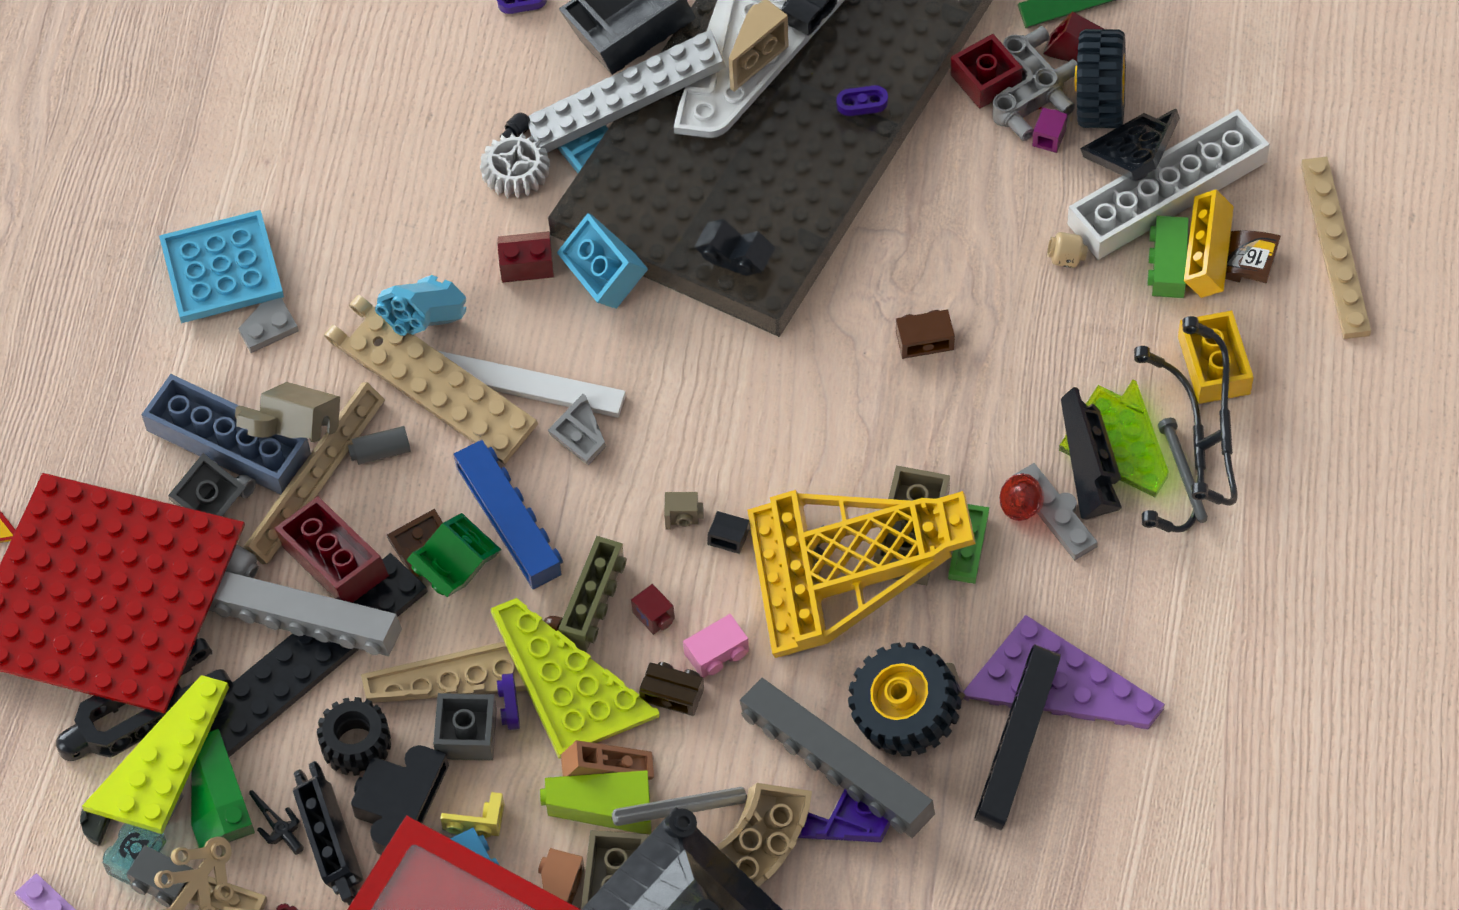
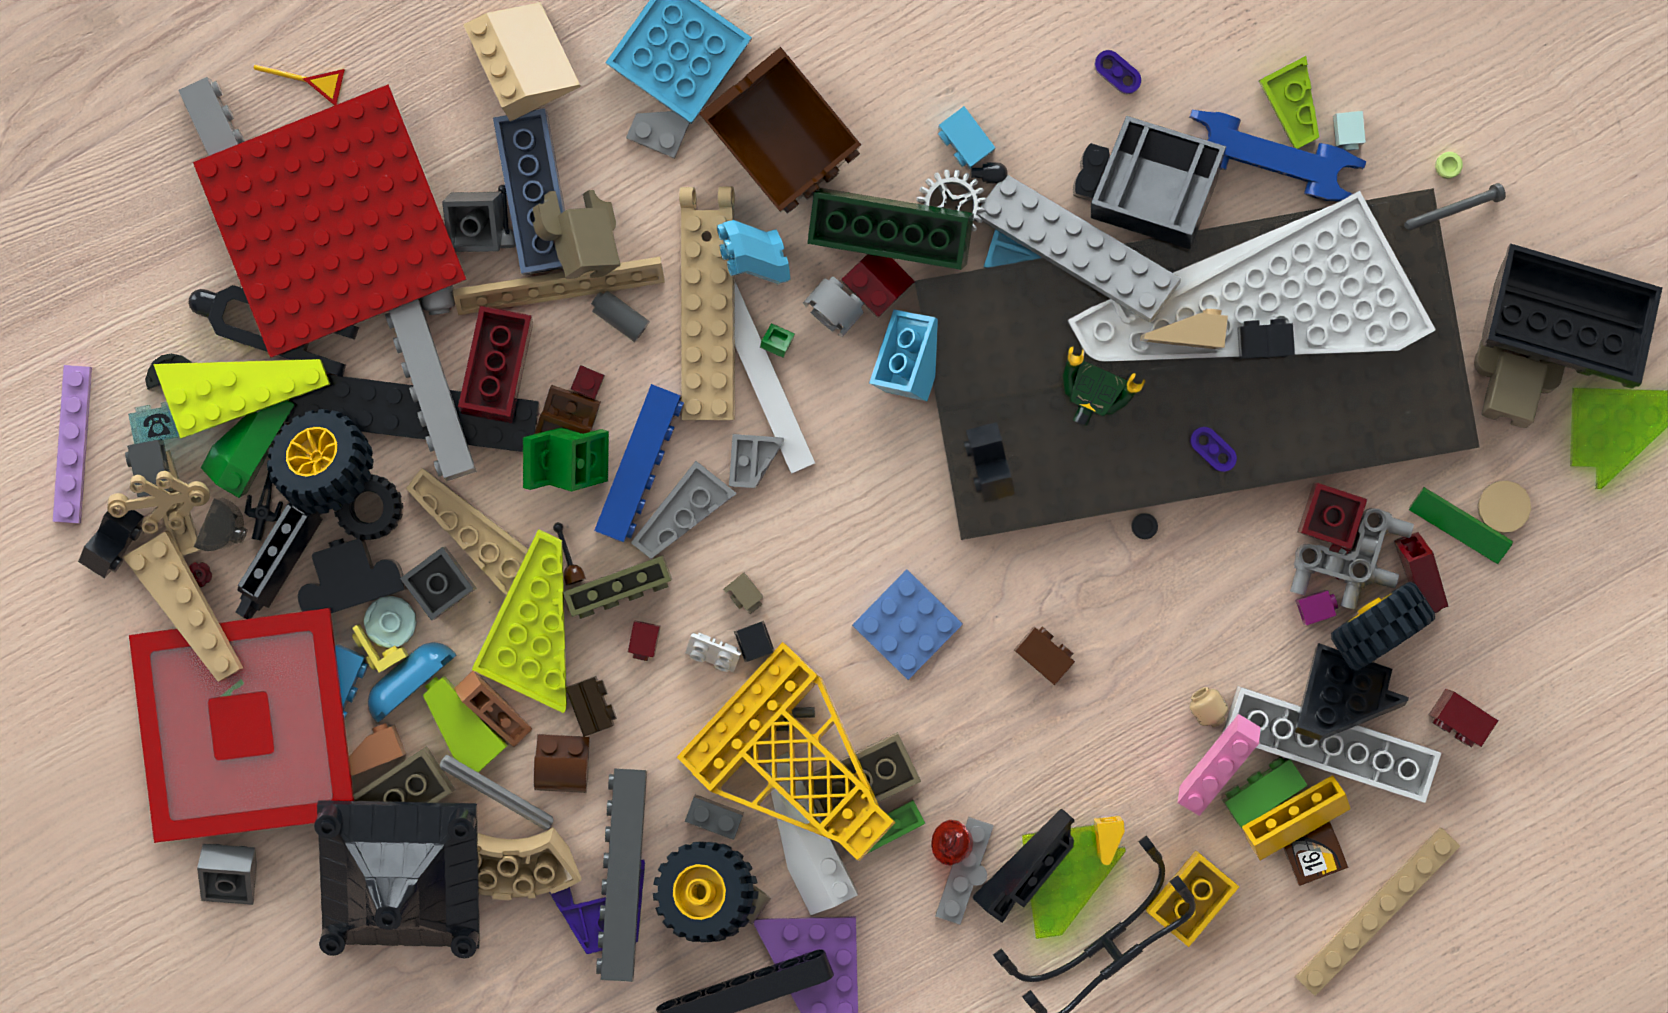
camera: 50 degrees right, 30 degrees up
(116, 370) = (522, 58): none -> slope
(264, 857) = (221, 527): none -> clear smoke brick
(282, 732) = (320, 461): none -> black wheel
(349, 224) = (781, 131): none -> reddish brown cylinder
(408, 507) = (587, 382): none -> dark red plate
(462, 793) = (390, 621): none -> light aqua tile
(474, 122) = (966, 138): none -> medium azure brick
(492, 203) = (890, 228): none -> dark green brick
(505, 350) = (777, 340): none -> green plate
(507, 689) = (489, 591): dark purple plate -> none
(515, 287) = (834, 306): none -> light grey brick
(522, 819) = (407, 678): none -> dark azure brick
(574, 507) = (686, 505): none -> light grey wing
(578, 59) = (1092, 165): none -> black brick
(701, 745) = (561, 763): none -> reddish brown brick
(709, 560) = (722, 657): none -> white hinge
(716, 645) = (649, 711): bright pink brick -> none
(742, 144) = (1095, 389): none -> dark green torso
(814, 416) = (907, 624): none -> medium blue plate
(842, 659) = (714, 816): none -> dark grey brick
(883, 204) = (1144, 526): none -> black tile
(943, 608) = (809, 856): none -> white wedge
(1104, 364) = (1108, 837): none -> yellow tile
(1118, 258) = (1219, 764): none -> bright pink brick
(1168, 426) = (1075, 942): dark grey bar -> none
(1222, 83) = (1463, 717): none -> dark red brick

